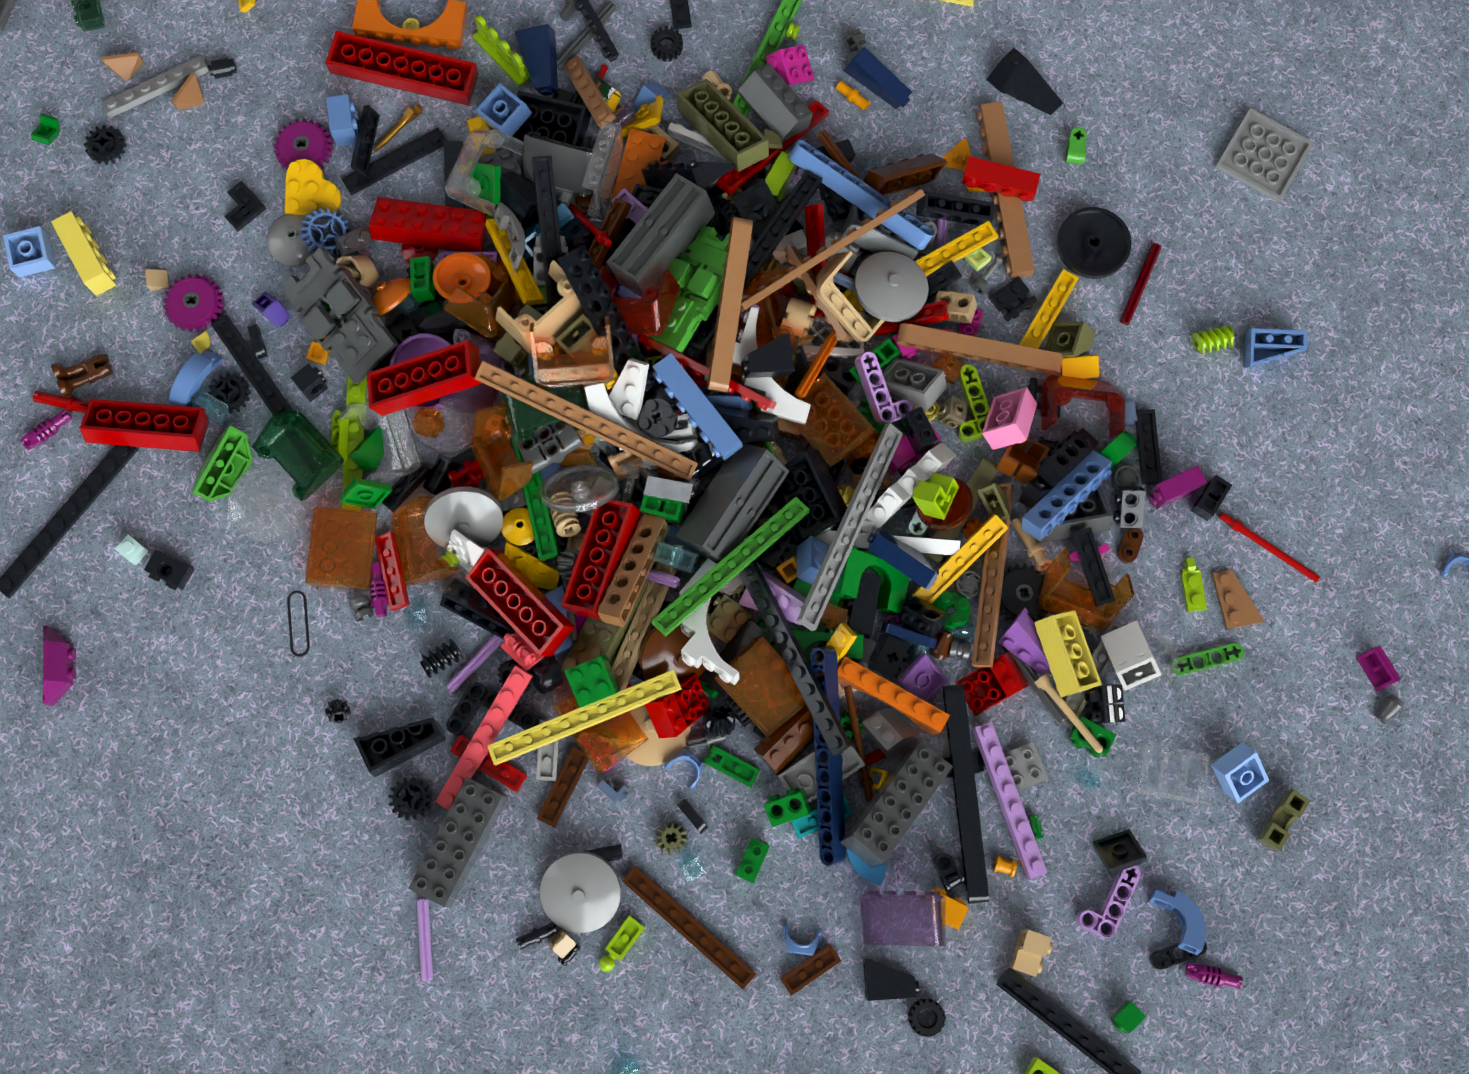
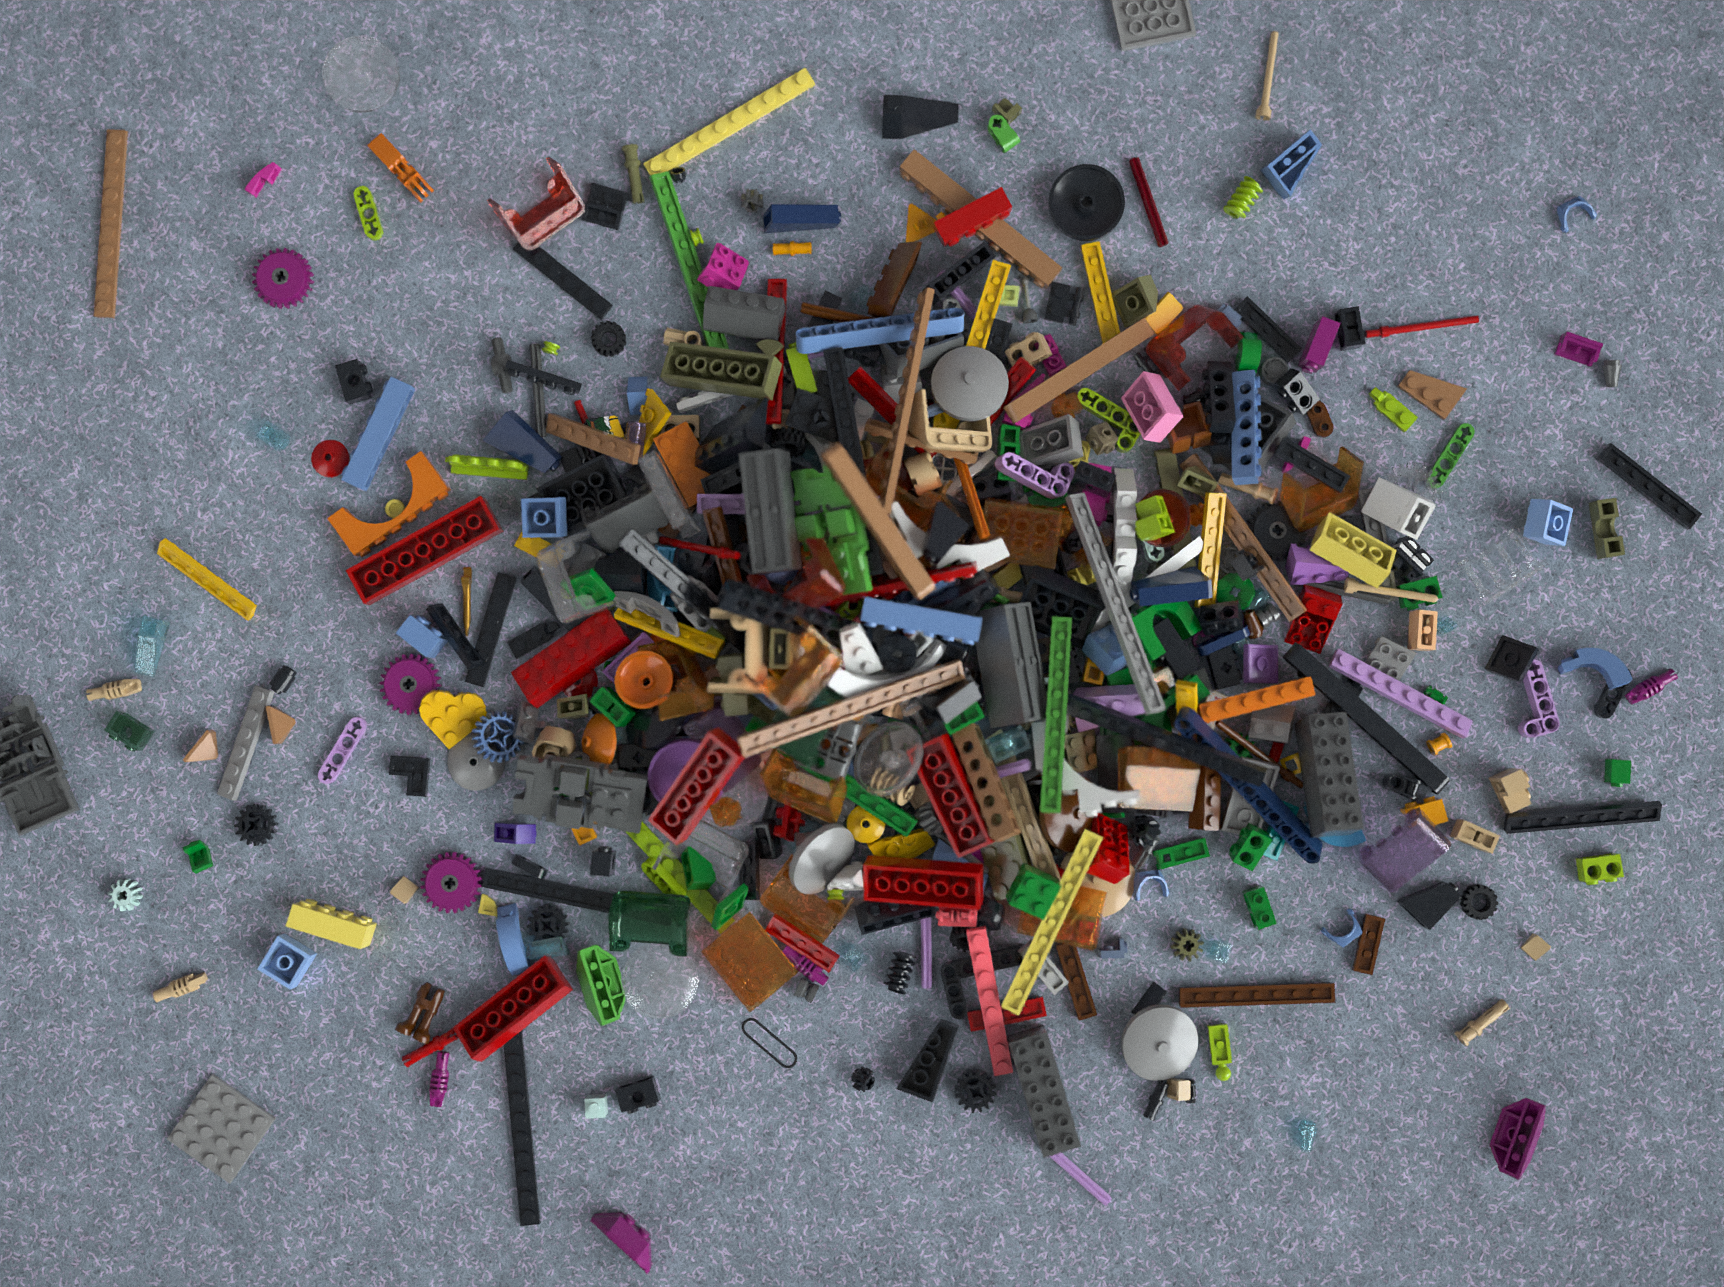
camera: 35 degrees left, 10 degrees up
(213, 149) = (341, 749): none -> lavender beam
(396, 259) = (572, 707): none -> olive slope
(416, 192) = (532, 639): none -> black hinge
(621, 15) = (550, 348): none -> lime bush
(693, 817) = (1188, 915): black beam -> none
(792, 447) = (1008, 575): none -> light yellow slope
(969, 961) = (1474, 836): none -> tan brick
(976, 594) = (1246, 564): none -> black brick
(1069, 766) = (1422, 630): none -> light nougat brick
(1094, 138) = (1007, 110): none -> olive panel
(1285, 293) = (1264, 108): none -> tan piece
(1345, 821) = (1649, 486): none -> black plate

